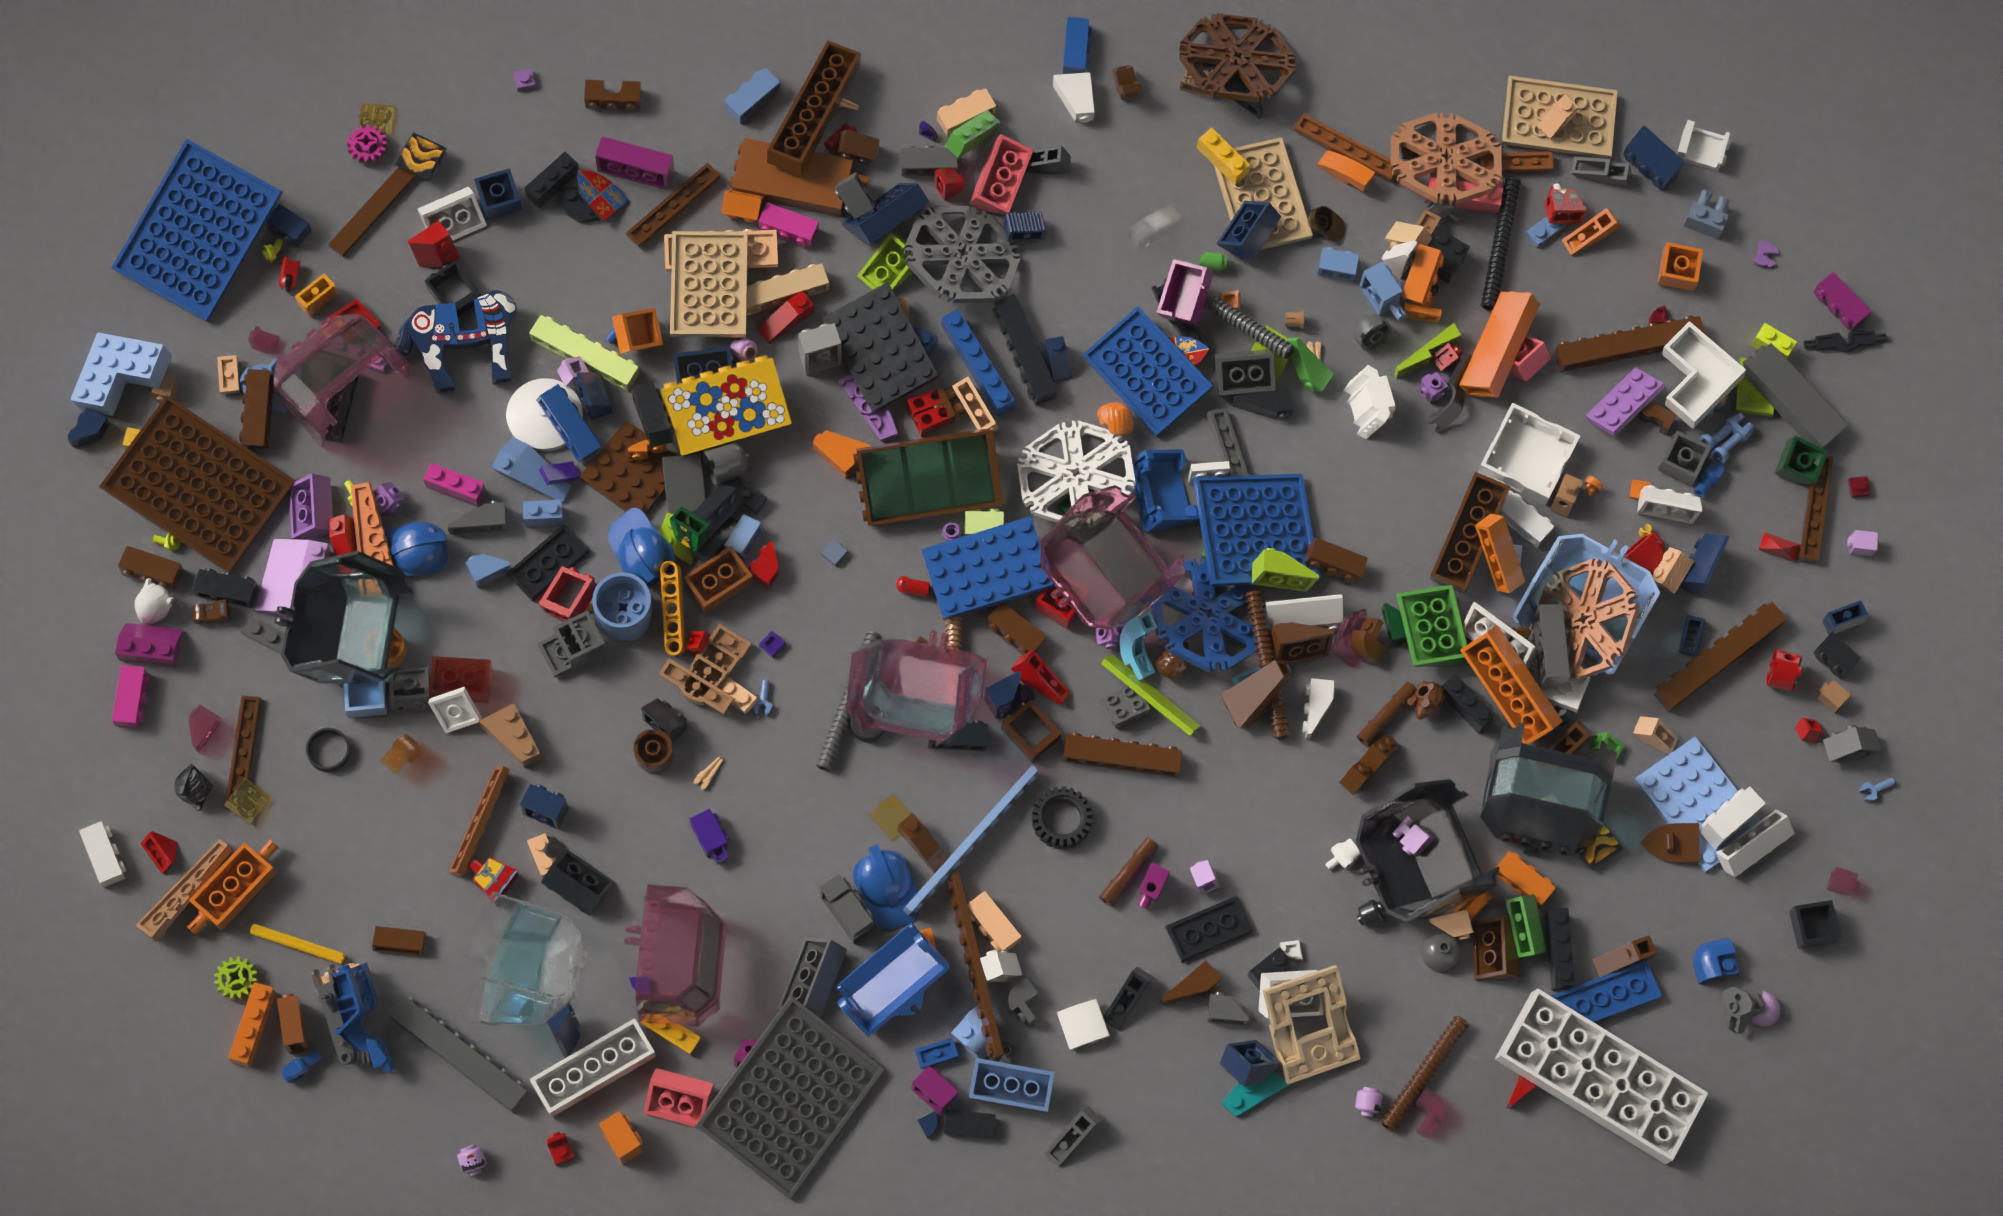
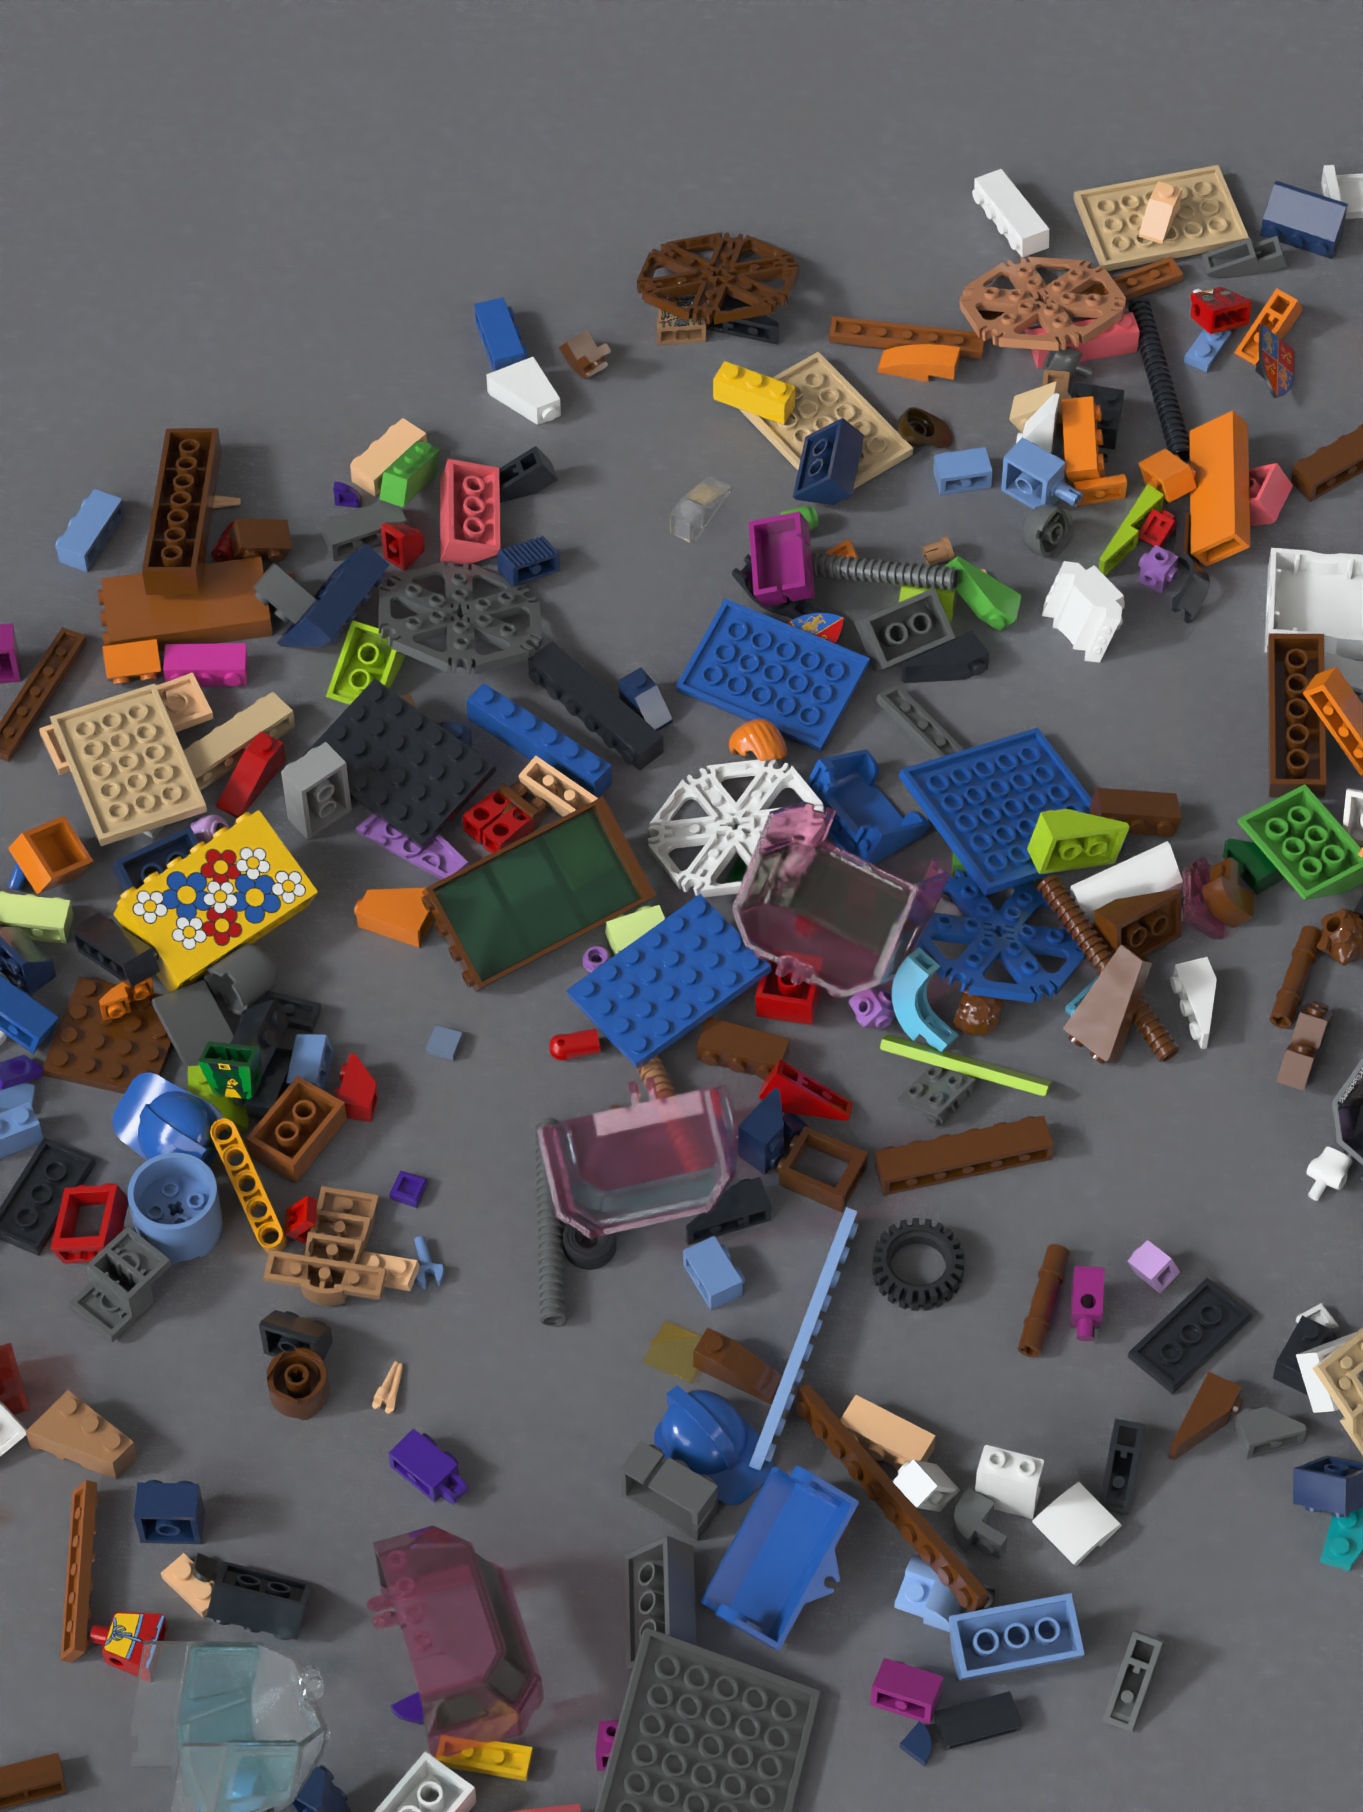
camera: 15 degrees left, 15 degrees down
(934, 774) = (713, 1272): none -> medium blue brick
(936, 1053) = (885, 1641): blue plate -> none
(1051, 984) = (1009, 1480): none -> white panel
(1208, 470) = (909, 756): white plate -> none
(1458, 77) = (1011, 213): none -> white brick
(1470, 321) = (1168, 474): none -> orange brick
(1583, 261) = (1275, 362): none -> shield

